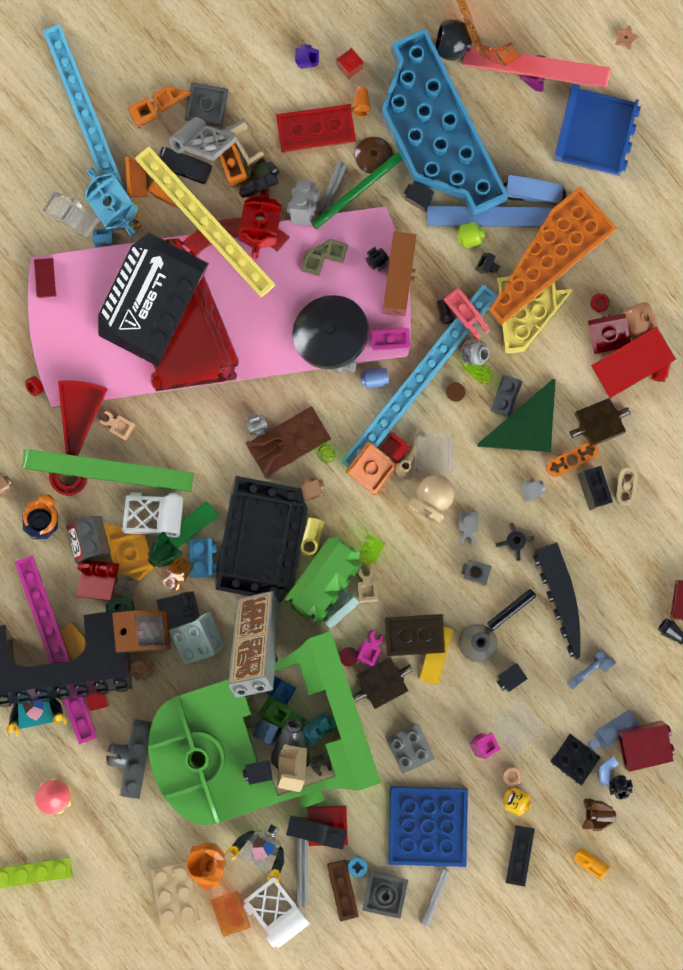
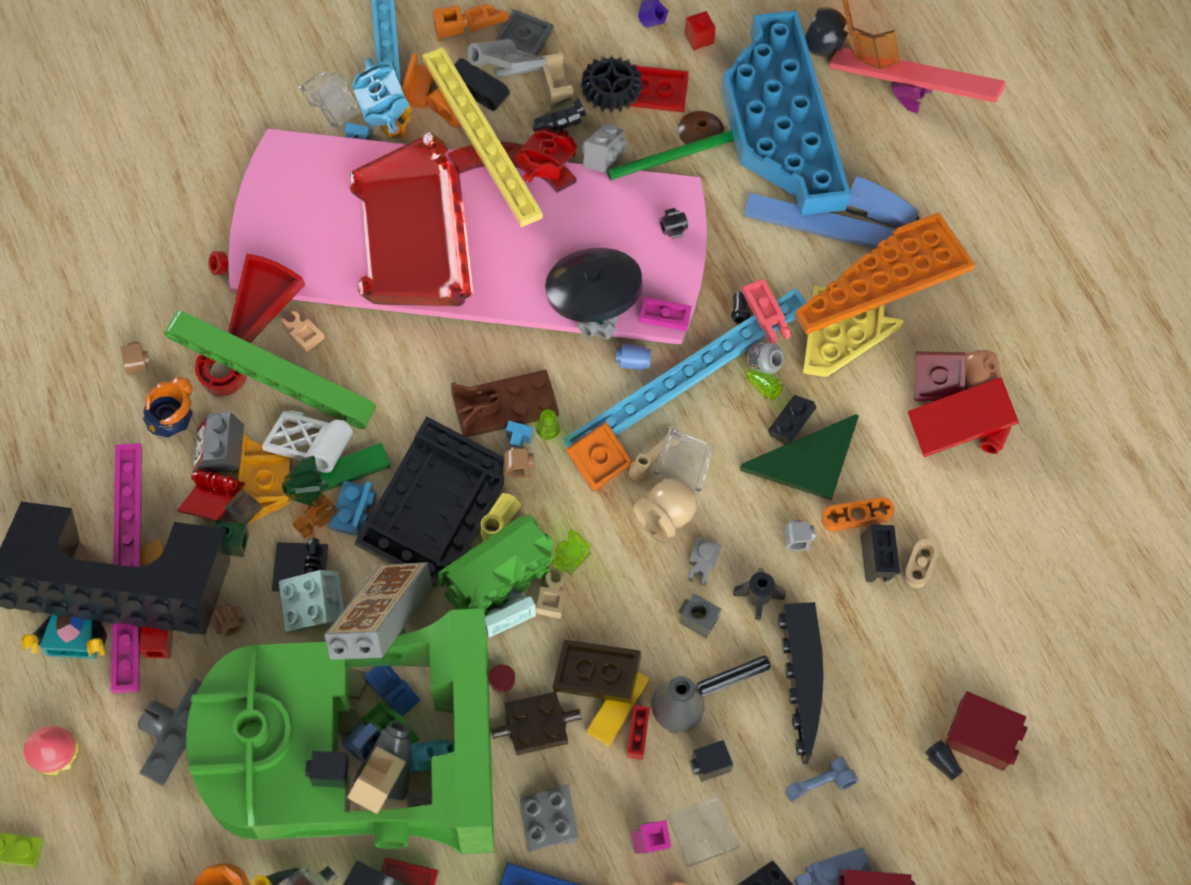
camera: 15 degrees right, 20 degrees down
(45, 278) = (274, 151): dark red tile -> none
(141, 631) = (240, 559): dark orange brick -> none
(150, 297) = (388, 191): black slope -> none
(232, 166) = (532, 92): orange brick -> none
(256, 424) = (471, 371): light grey gear -> none
(286, 141) = (597, 84): none -> black gear
(307, 465) = (519, 434): none -> dark azure tile
(328, 250) = (619, 204): olive tile -> none
(333, 186) = (647, 143): light grey axle -> none
(361, 102) = (701, 73): orange cone -> none
(368, 651) = (529, 675): dark pink plate -> none
(395, 447) = (637, 441): red panel -> none
(399, 273) = (695, 241): dark orange brick -> none
(418, 195) = (743, 179): black brick -> none
(455, 392) = (729, 400): reddish brown tile -> none
(455, 670) = (638, 732): none -> red piece
(470, 234) = (794, 233): lime head -> none
(486, 264) = (806, 270): black tile -> none
(596, 131) = (970, 166): blue panel -> none
(599, 303) = (934, 343): red plate -> none
(600, 422) = (904, 478): dark brown plate -> none
(626, 32) = (1027, 88): nougat plate -> none

